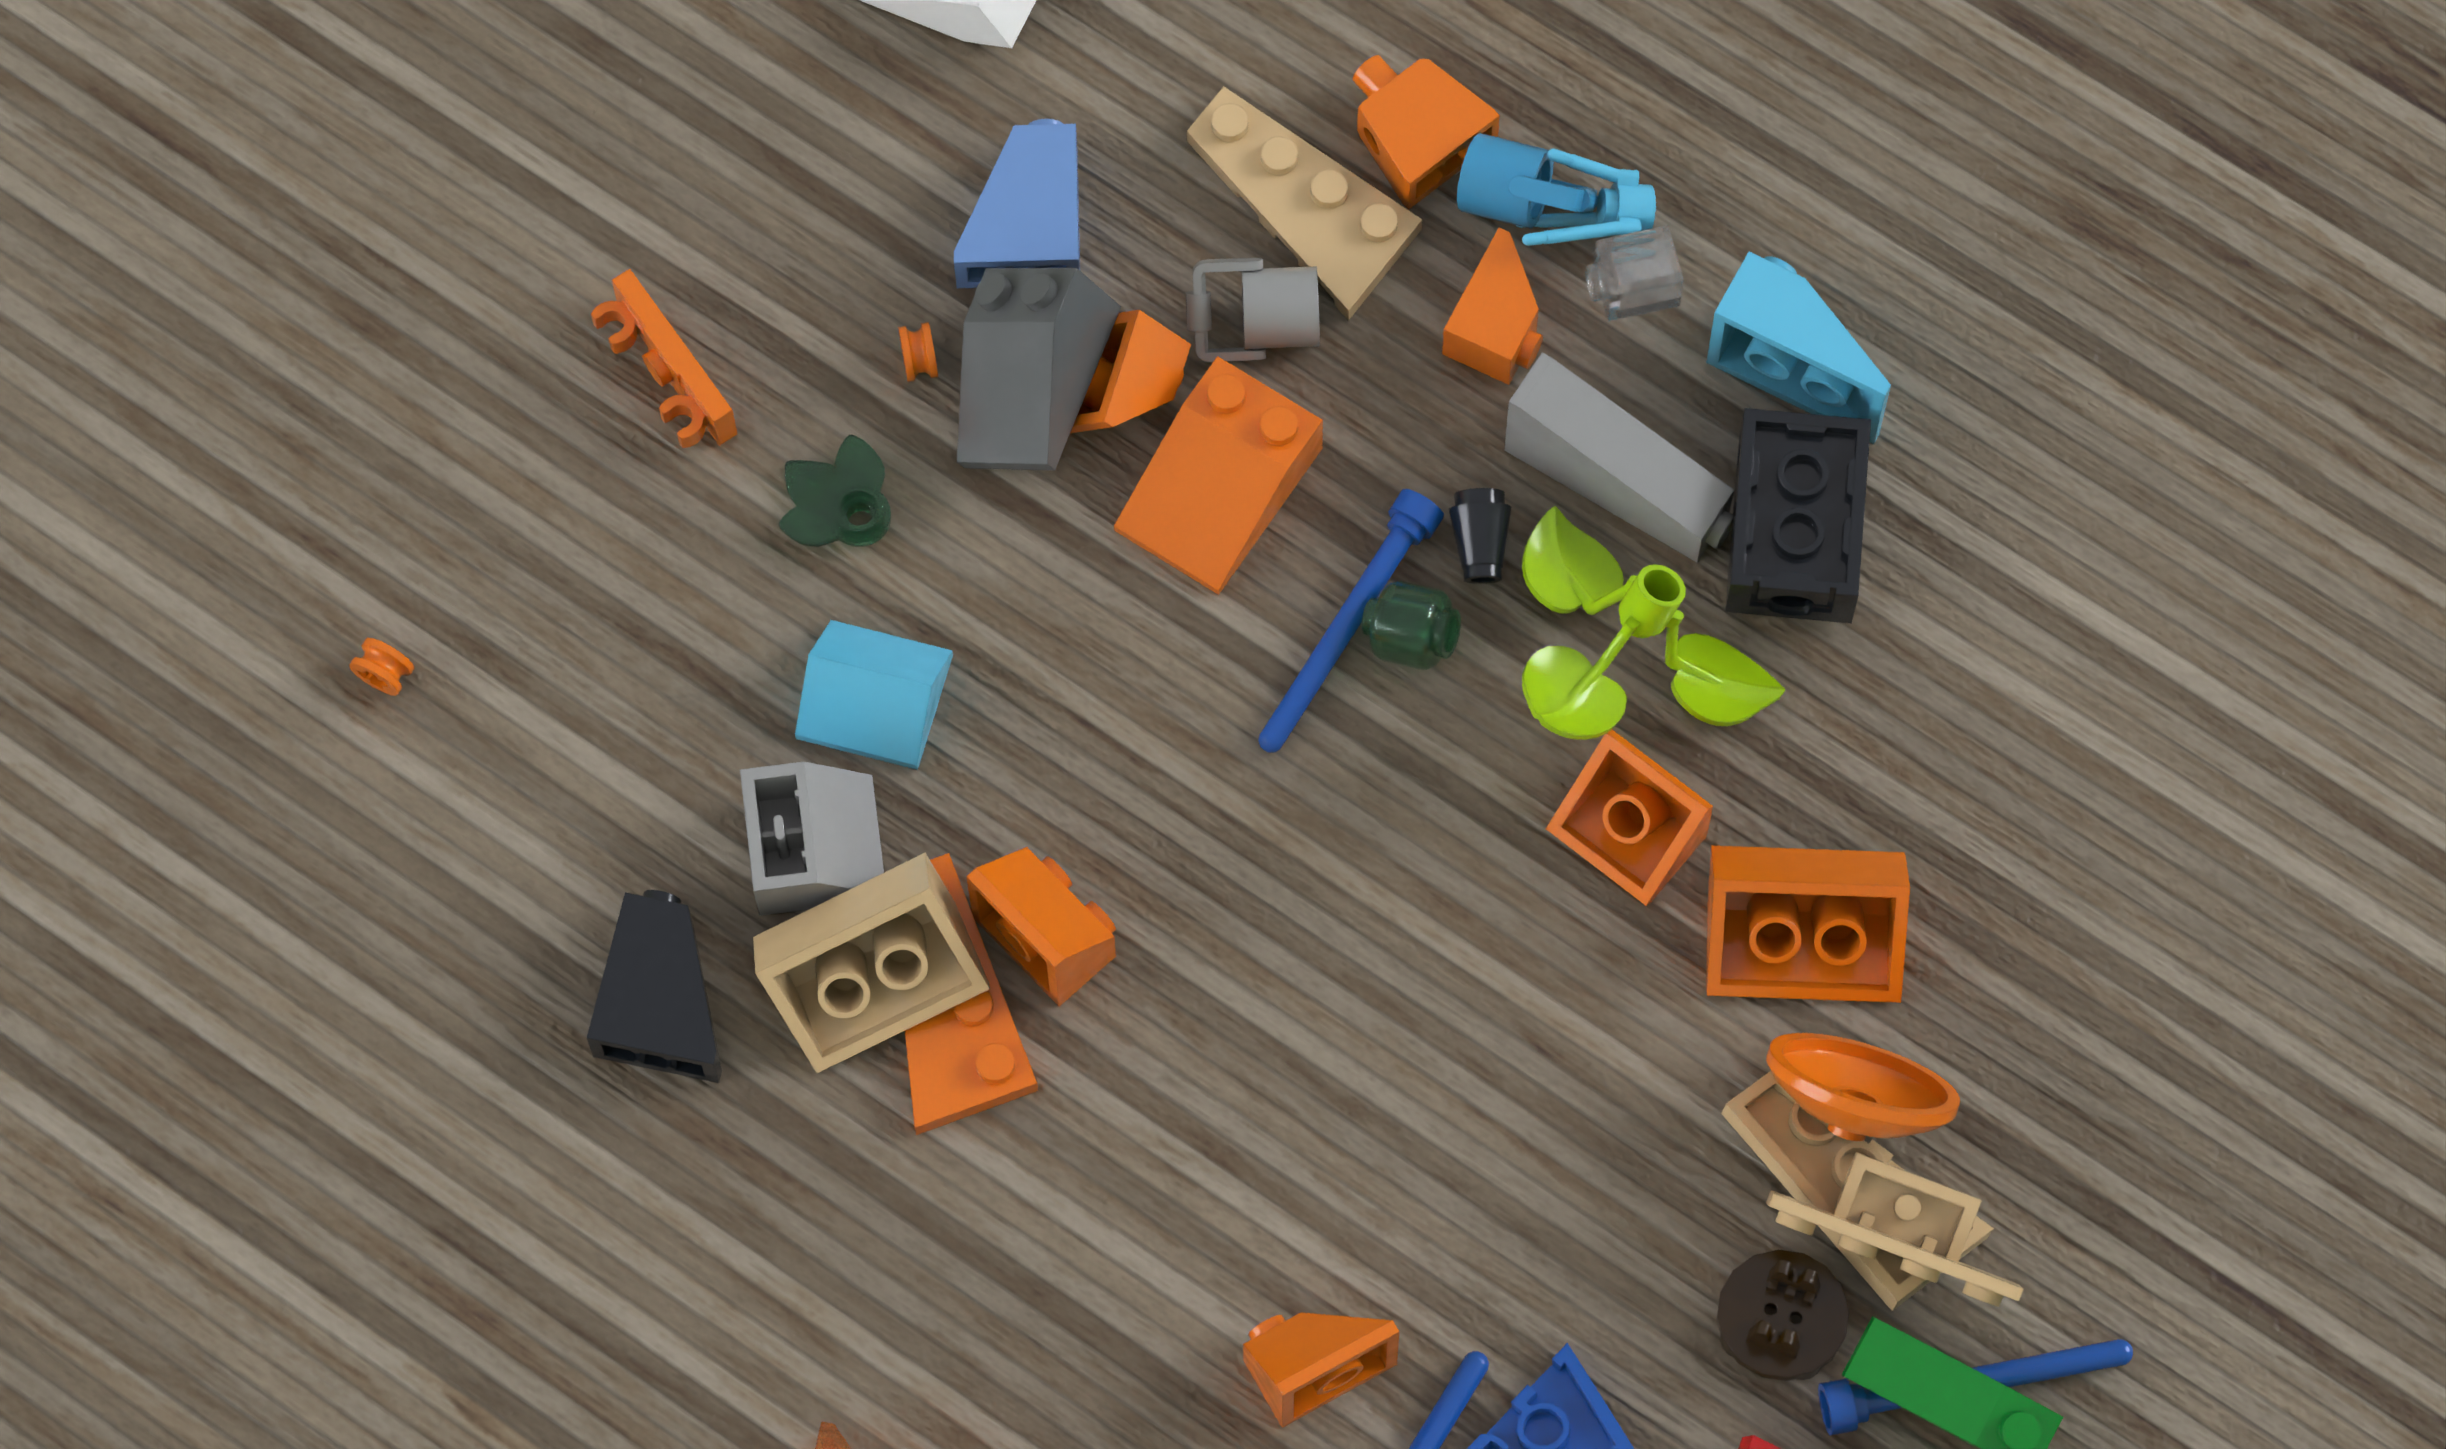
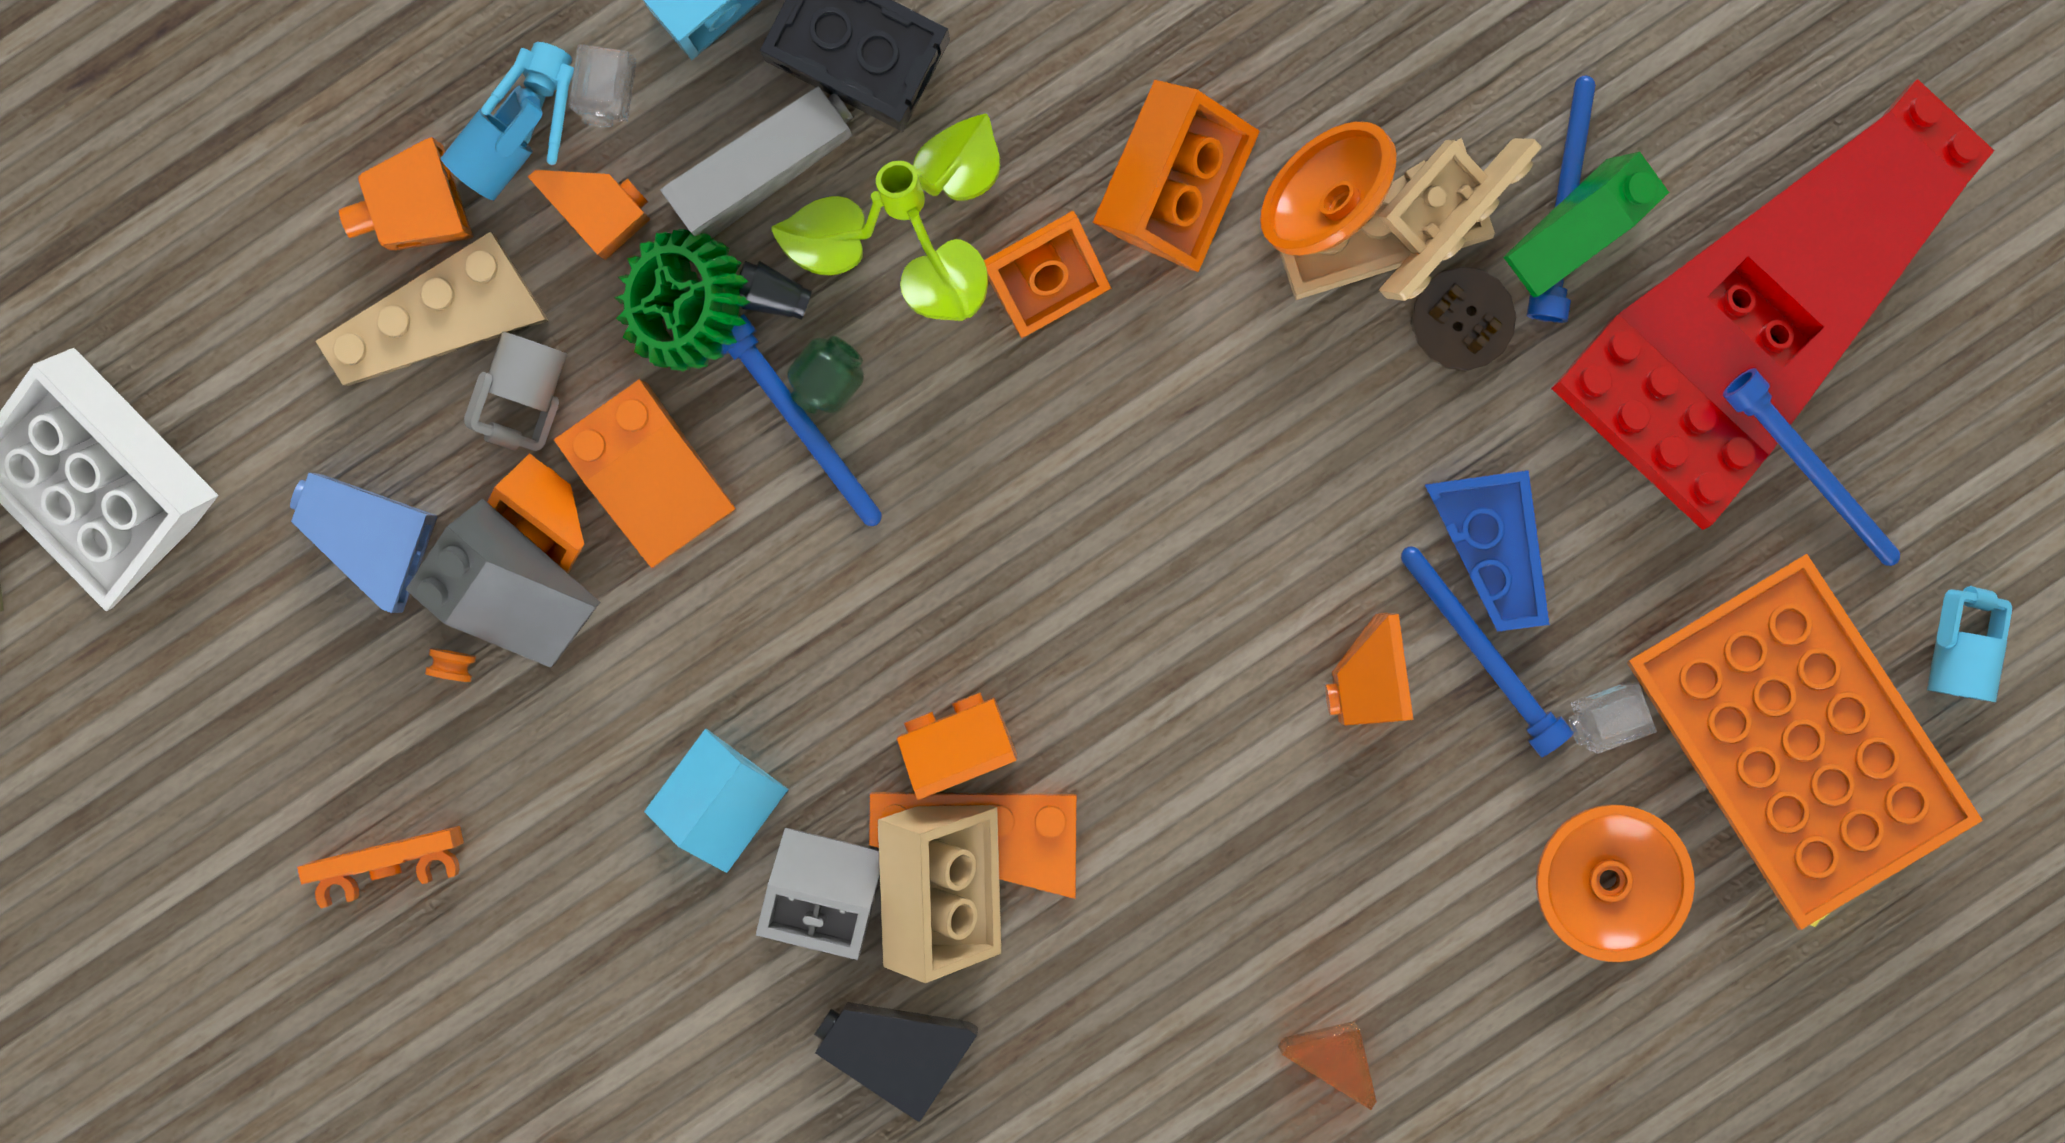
camera: 75 degrees left, 20 degrees up
(832, 493) = (539, 772): clear green plate -> none
(1430, 436) = (694, 310): none -> green gear

